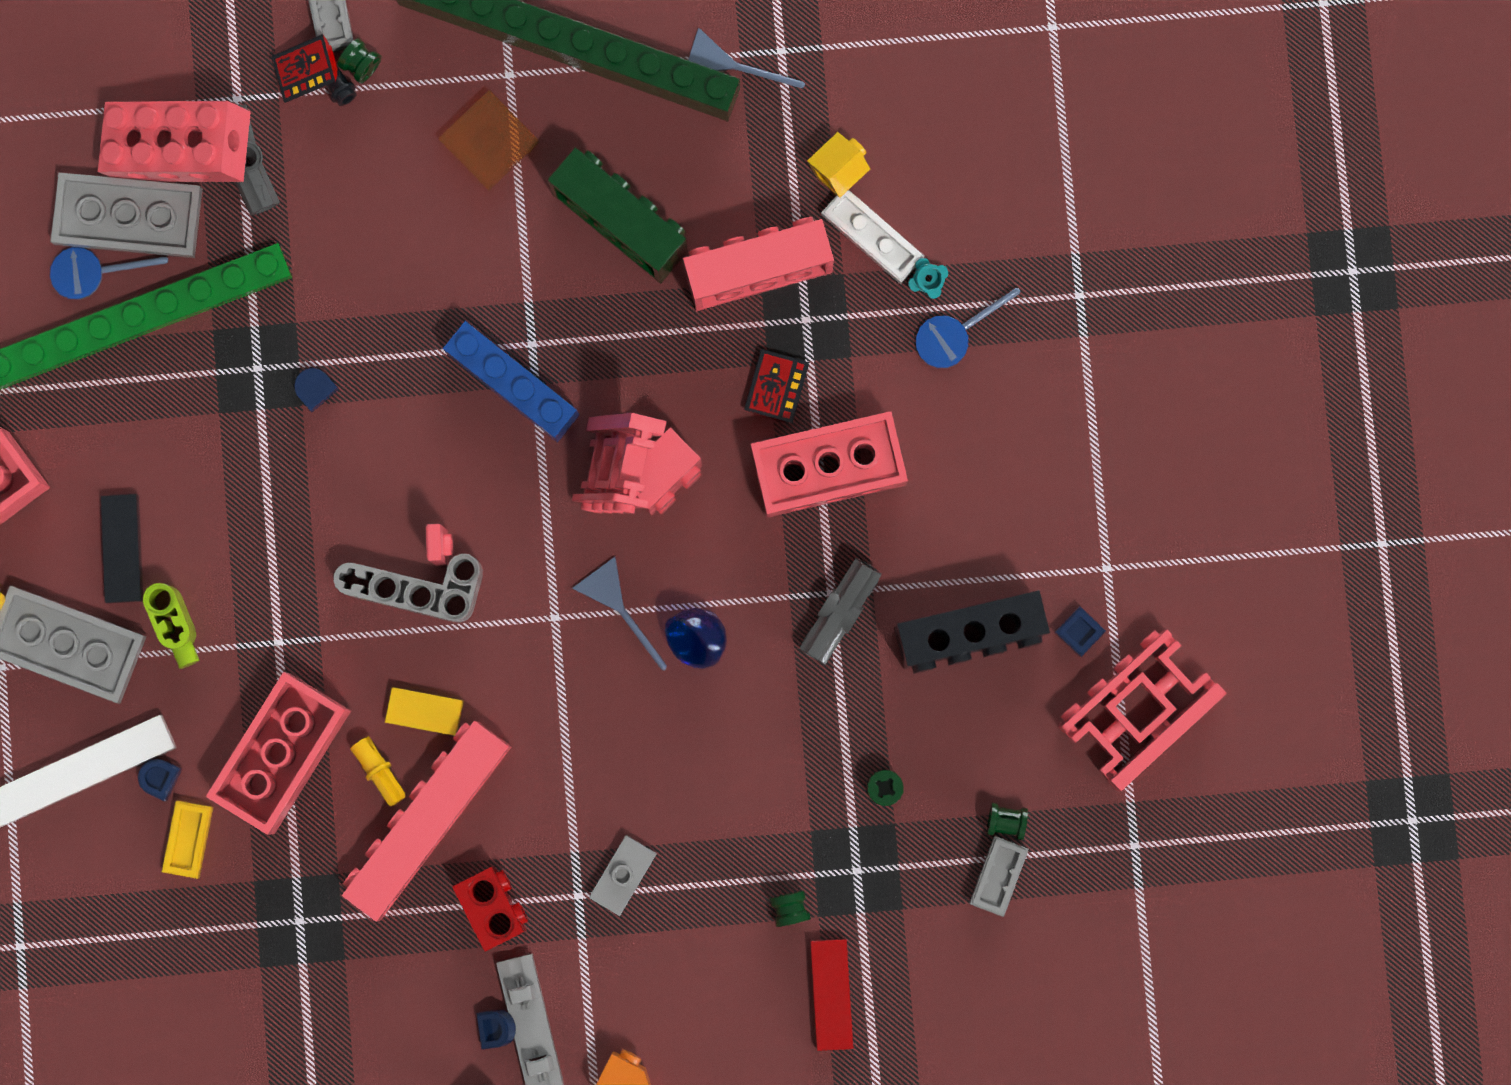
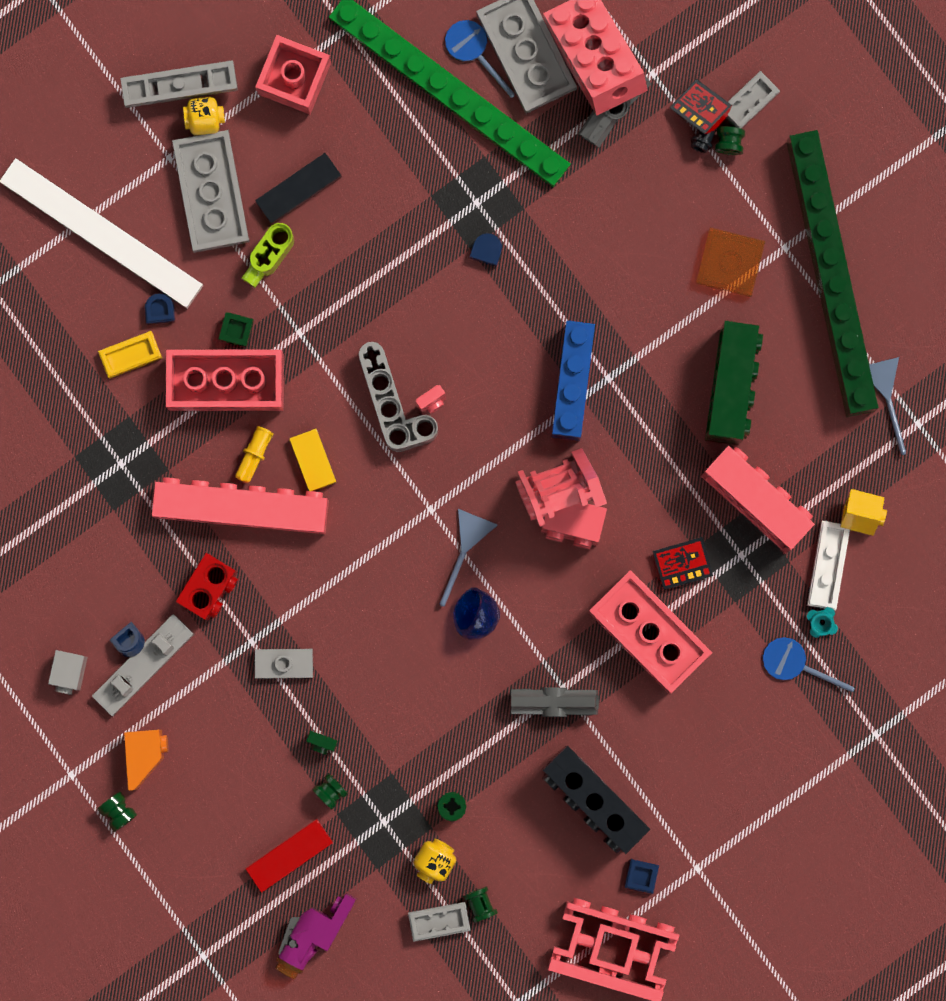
camera: 60 degrees right, 0 degrees up
(232, 708) = (236, 329): none -> dark green plate
(733, 886) = (321, 742): none -> dark green plate
(926, 1023) = (308, 932): none -> magenta plate
(932, 842) = (434, 861): none -> yellow head

